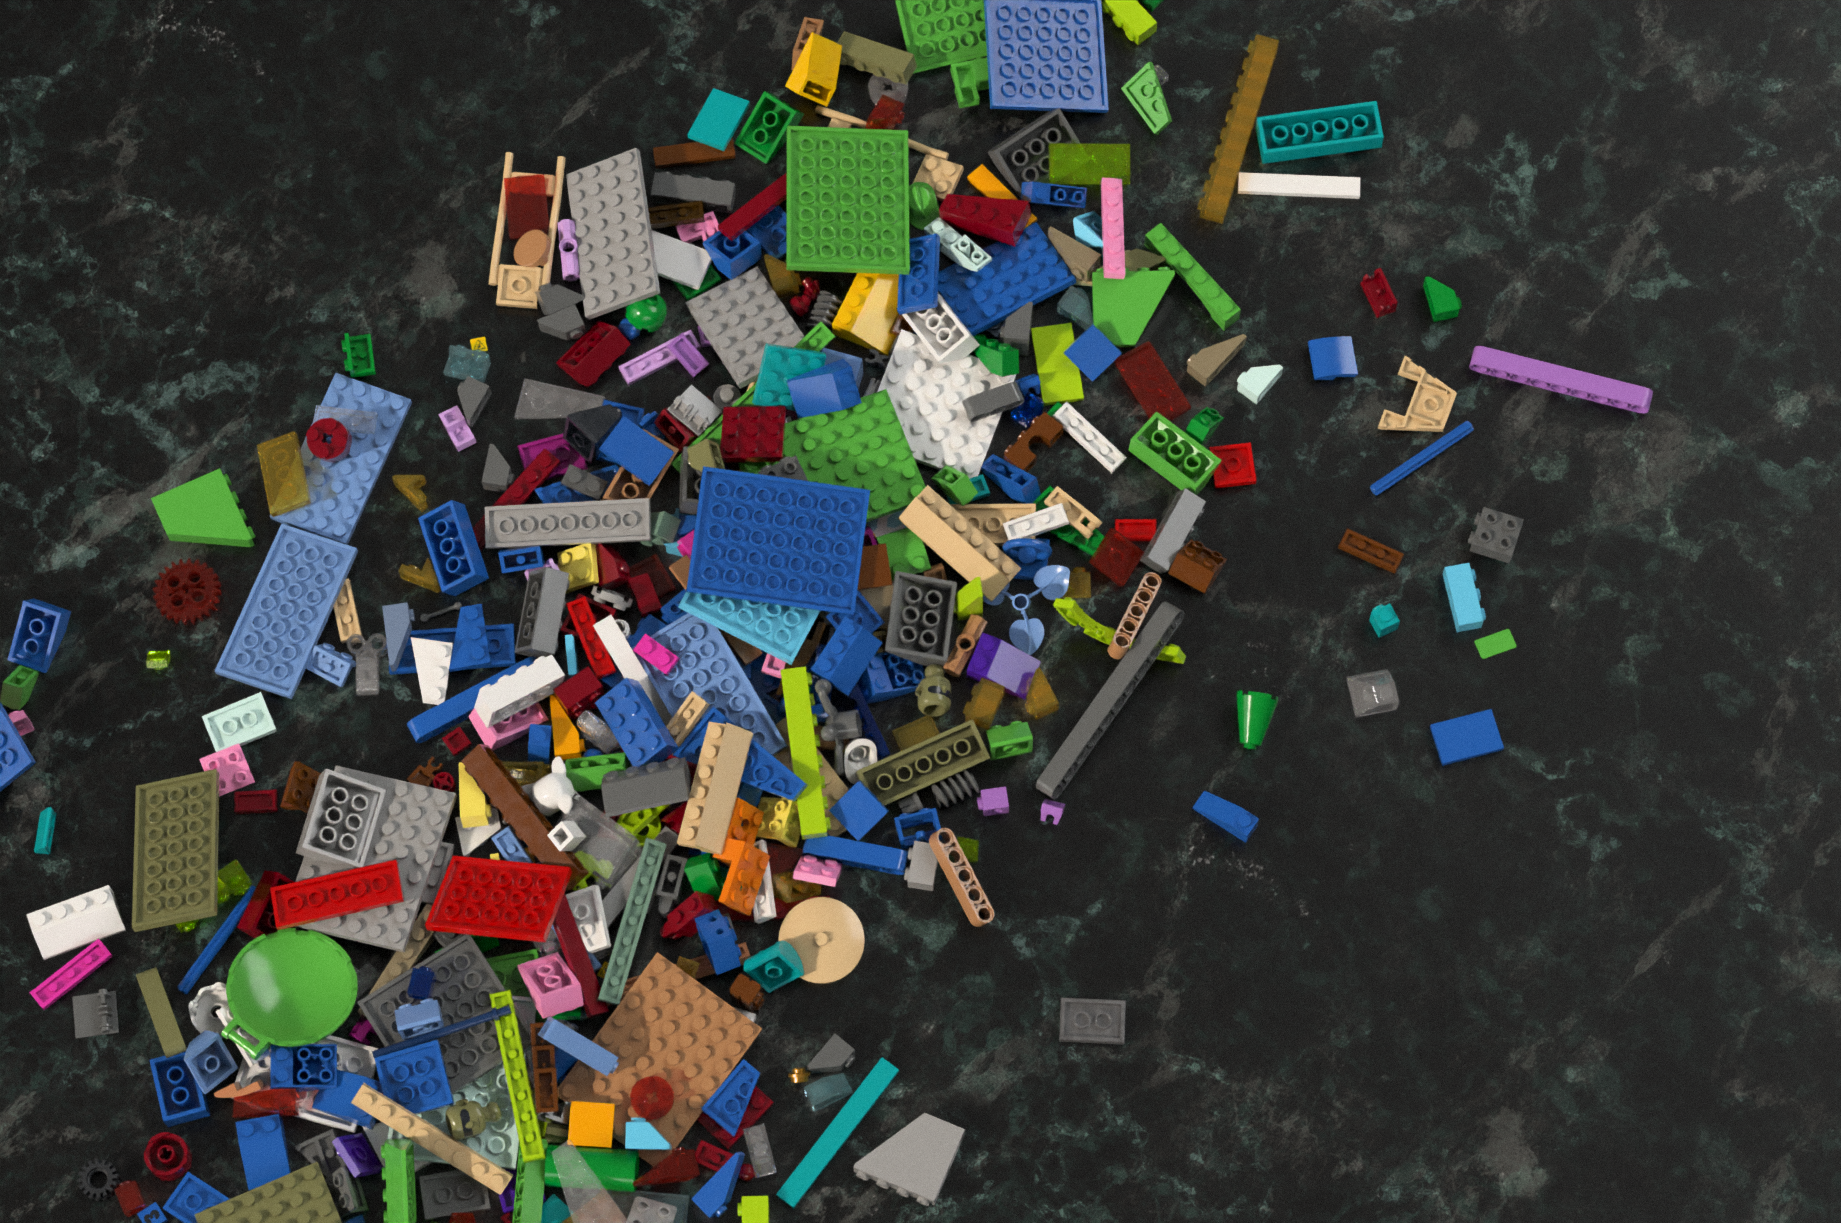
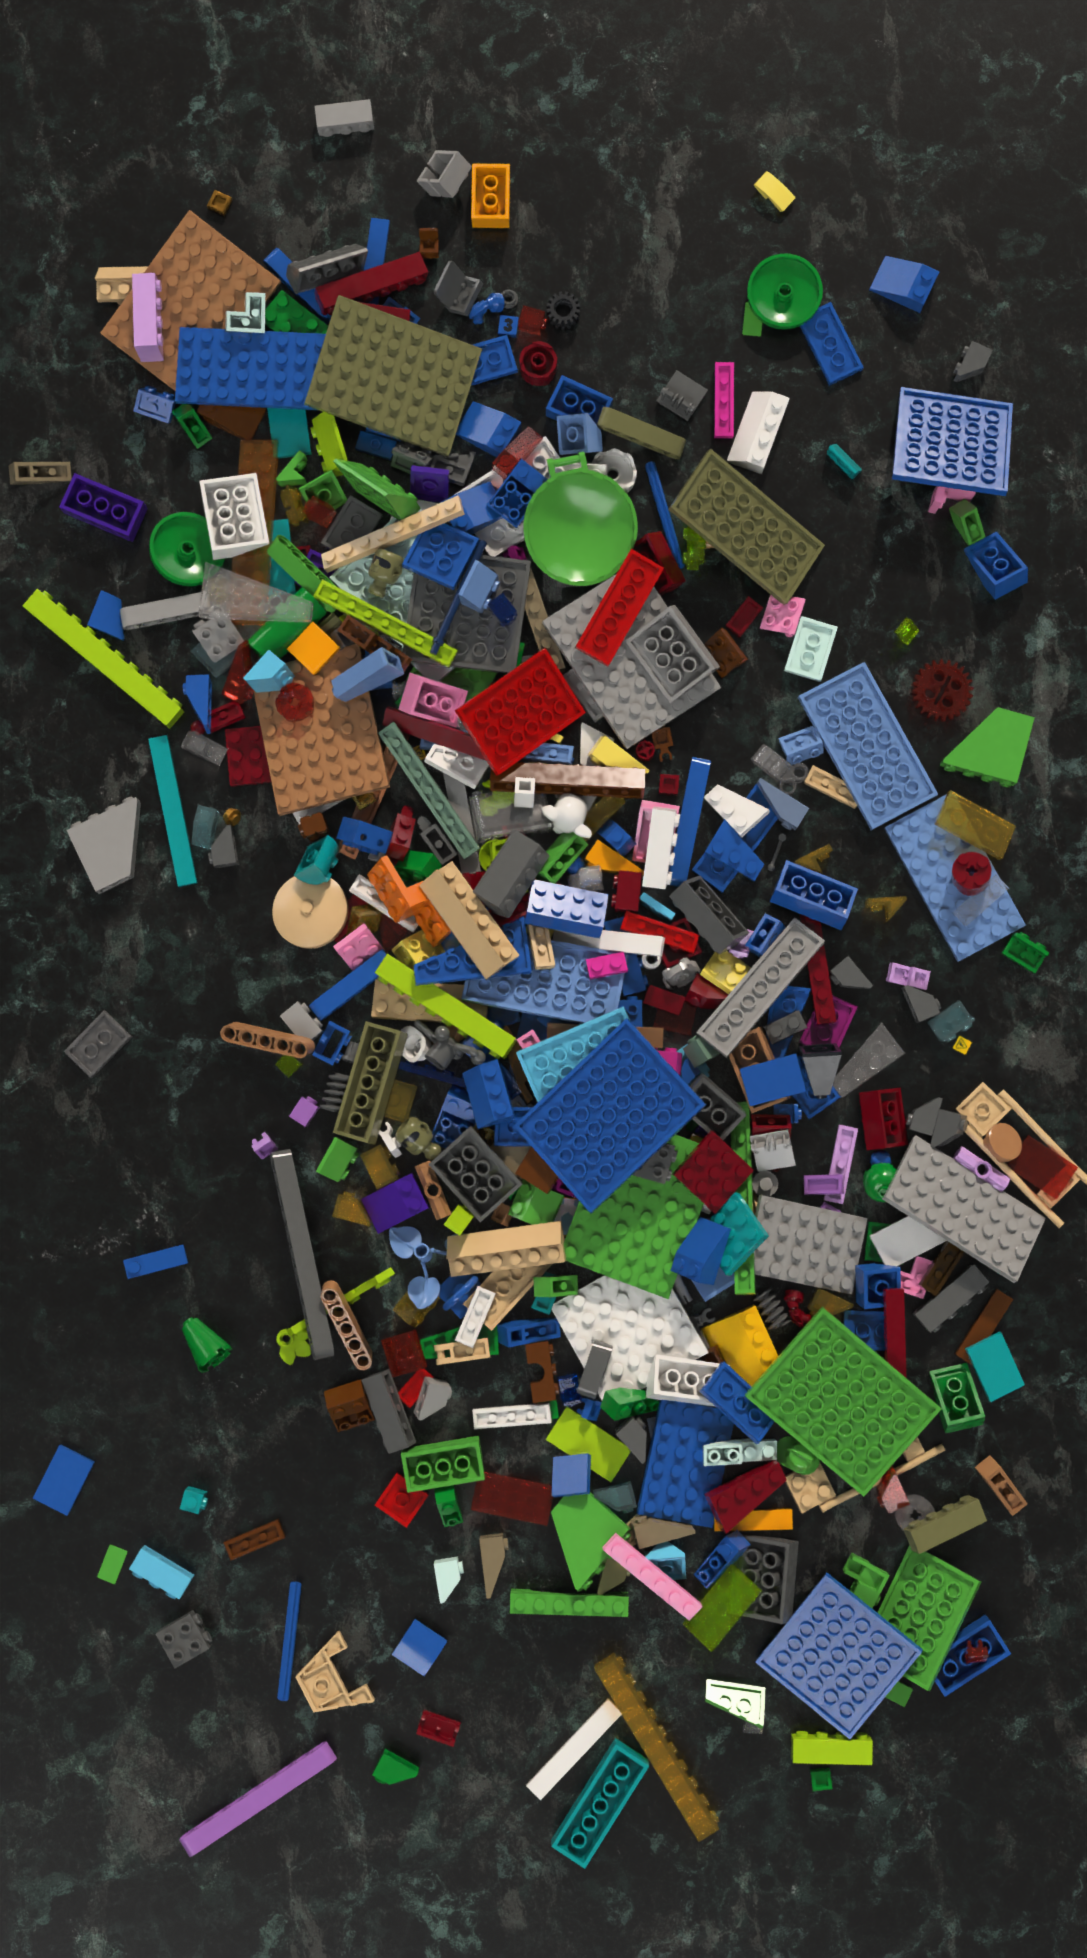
camera: 135 degrees right, 15 degrees up
(236, 1090) = (539, 437): nougat slope -> none
(705, 454) = (716, 1119): olive slope -> none
(732, 1098) = (251, 755): blue wing -> none
(816, 70) = (969, 1470): yellow slope -> none
(859, 810) = (373, 1010): blue tile -> none
(956, 708) = (392, 1144): none -> white plate
(1131, 507) = (432, 1397): none -> light grey slope
(1193, 650) = (295, 1347): none -> lime plate
(1373, 693) = (152, 1444): clear slope -> none

